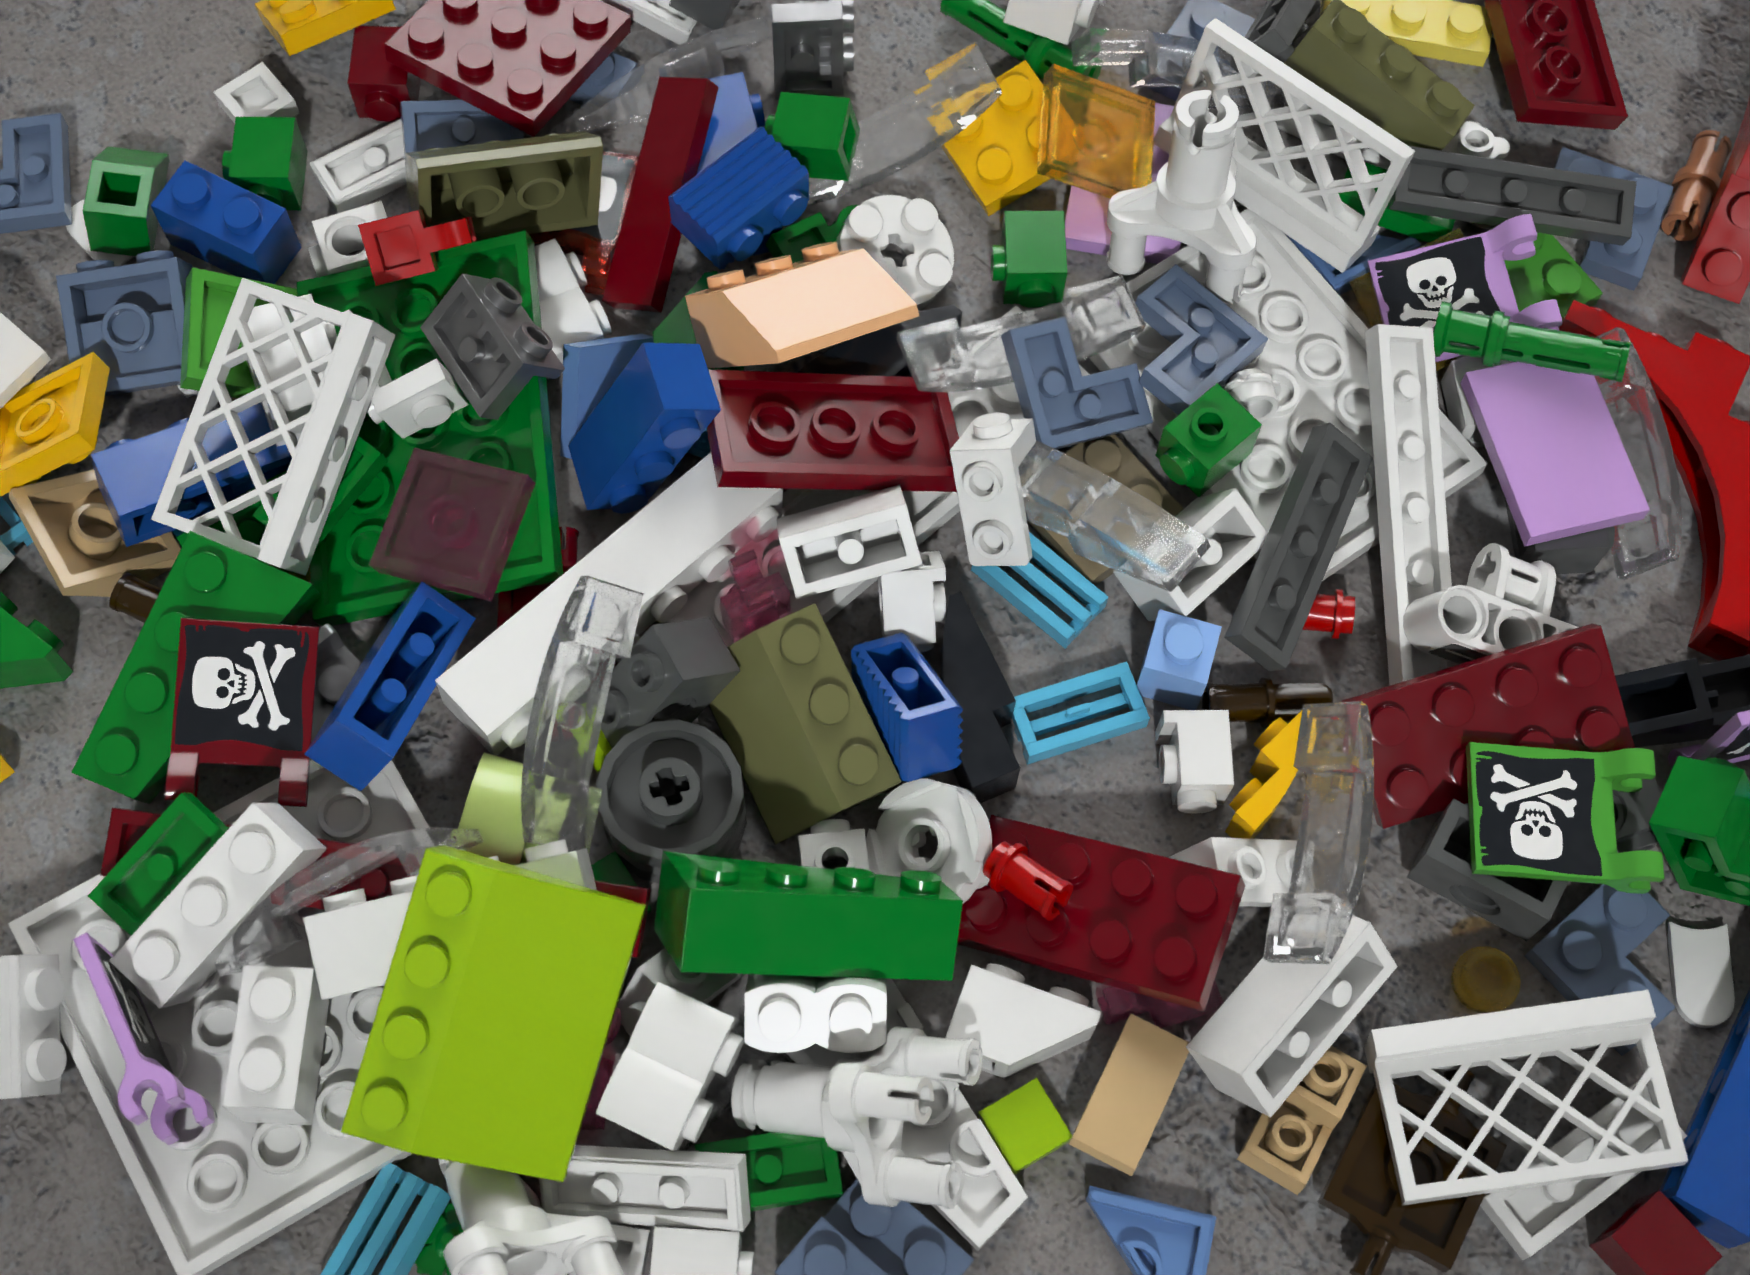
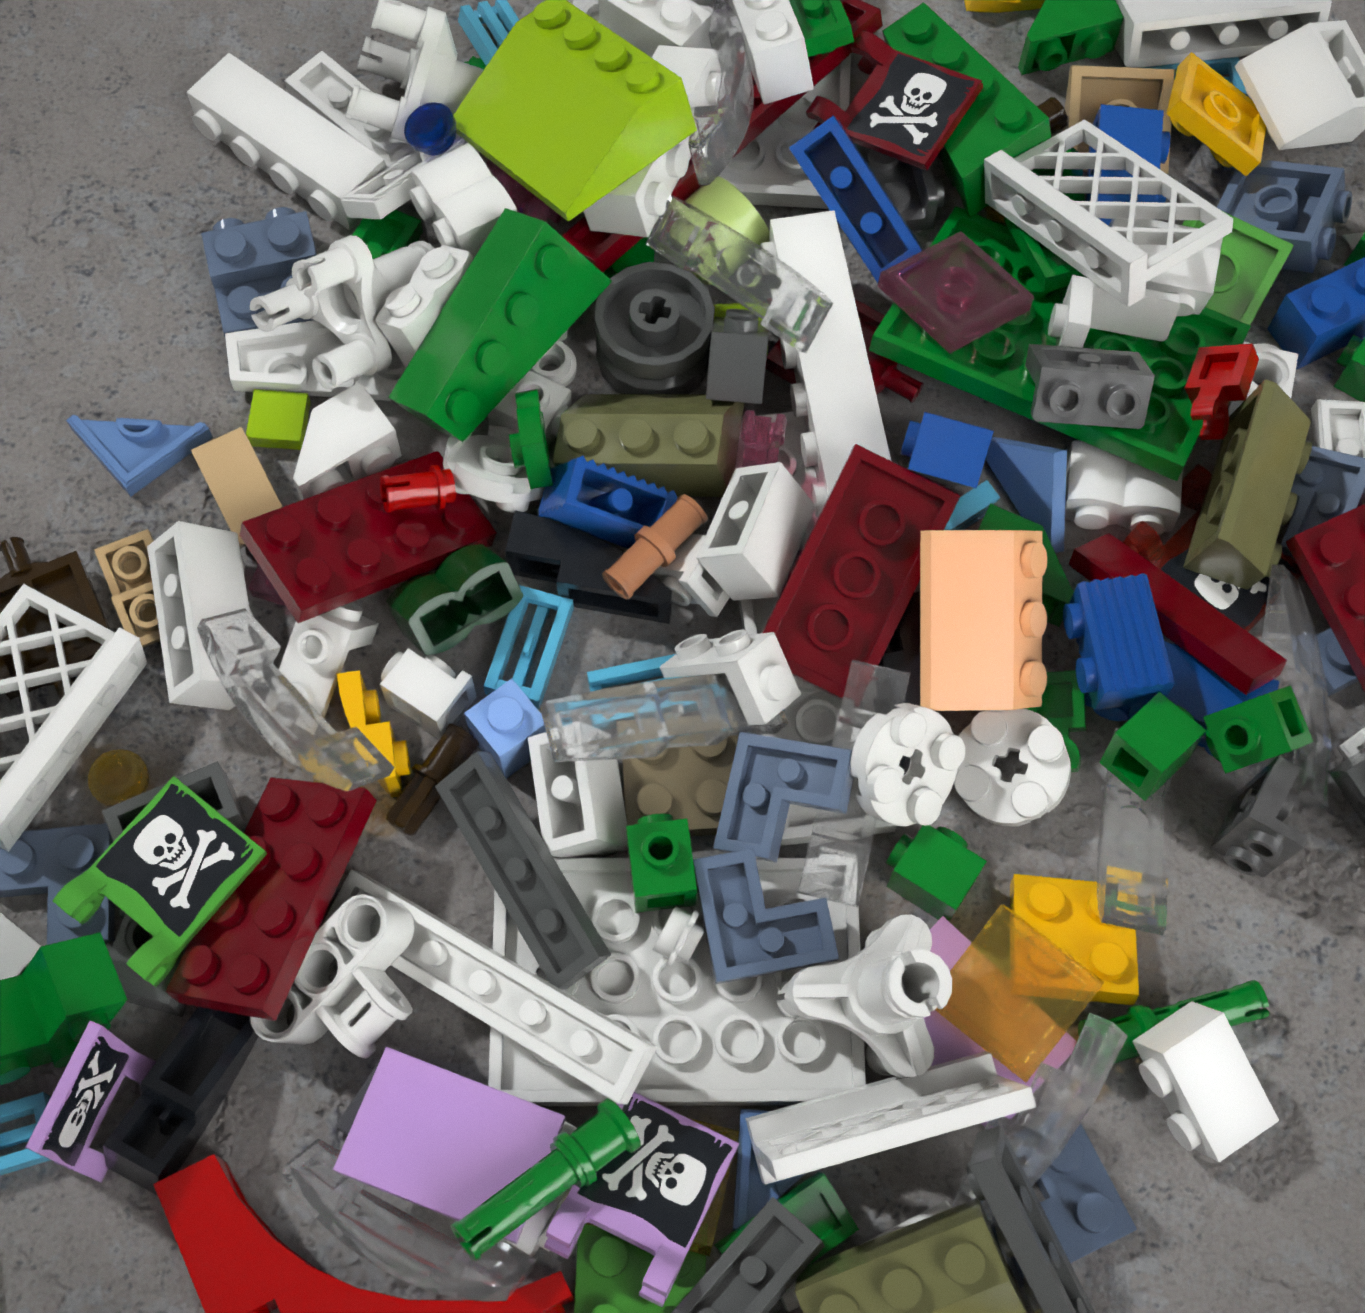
camera: 125 degrees right, 0 degrees up
(593, 1182) = (431, 129): none -> clear blue plate
(753, 56) = (1257, 730): none -> green brick
(909, 795) = (530, 445): none -> green plate
(925, 624) = (654, 546): none -> nougat pin
(983, 299) = (932, 770): none -> white plate
(1095, 789) = (463, 592): none -> dark green brick
(1332, 614) = (462, 879): red pin -> none

